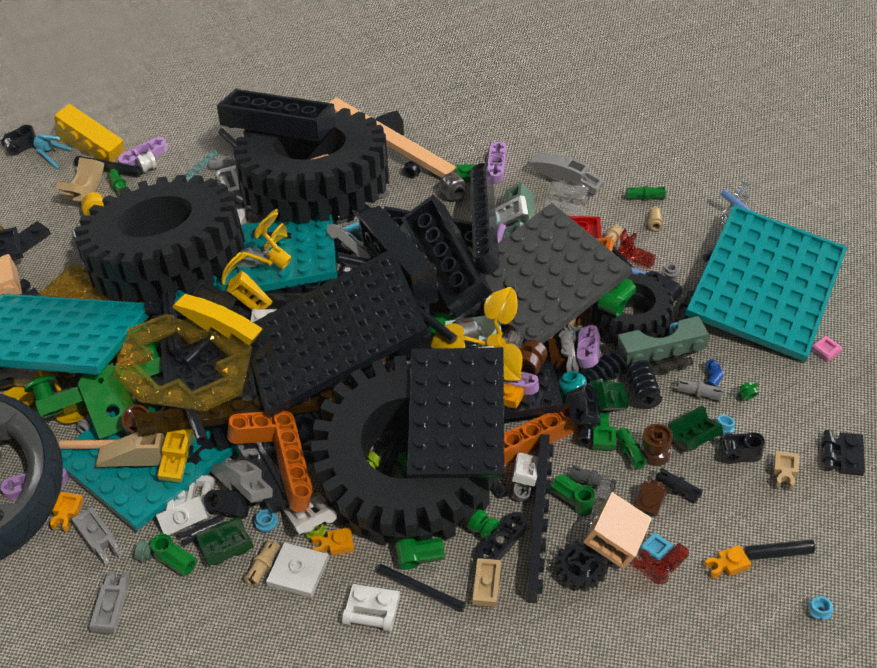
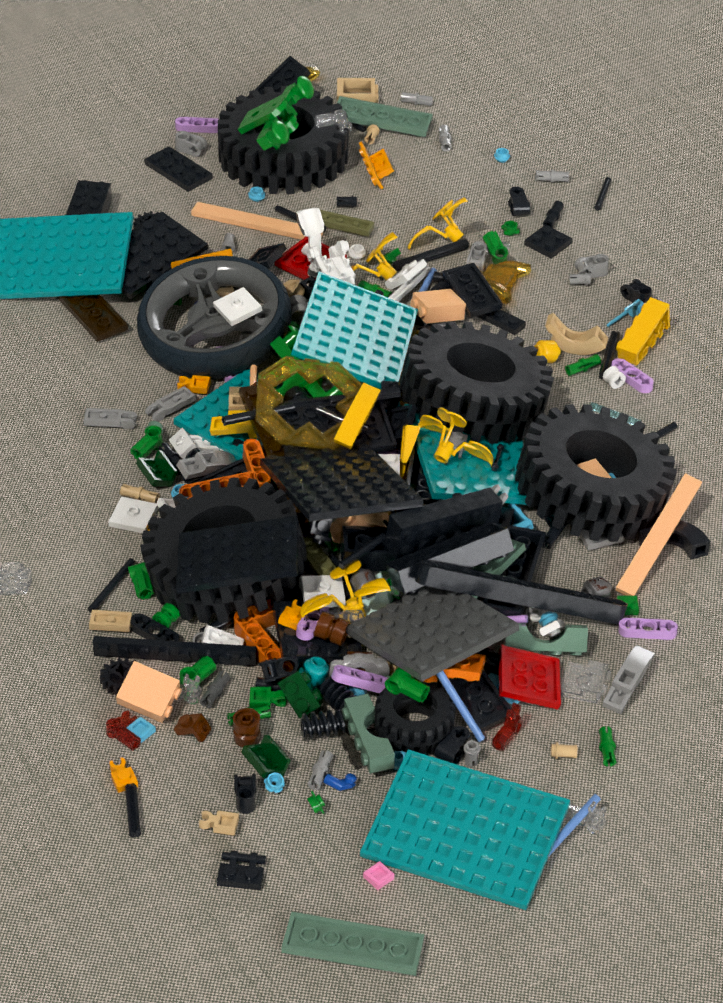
camera: 85 degrees right, 5 degrees down
(277, 114) = (632, 424): black brick -> none
(371, 601) = (100, 559): white plate -> none
(411, 169) = (624, 562): black plate -> none
(614, 232) = (528, 710): tan pin -> none
(679, 485) = (205, 745): black pin -> none
(822, 603) = (69, 830): medium azure plate -> none

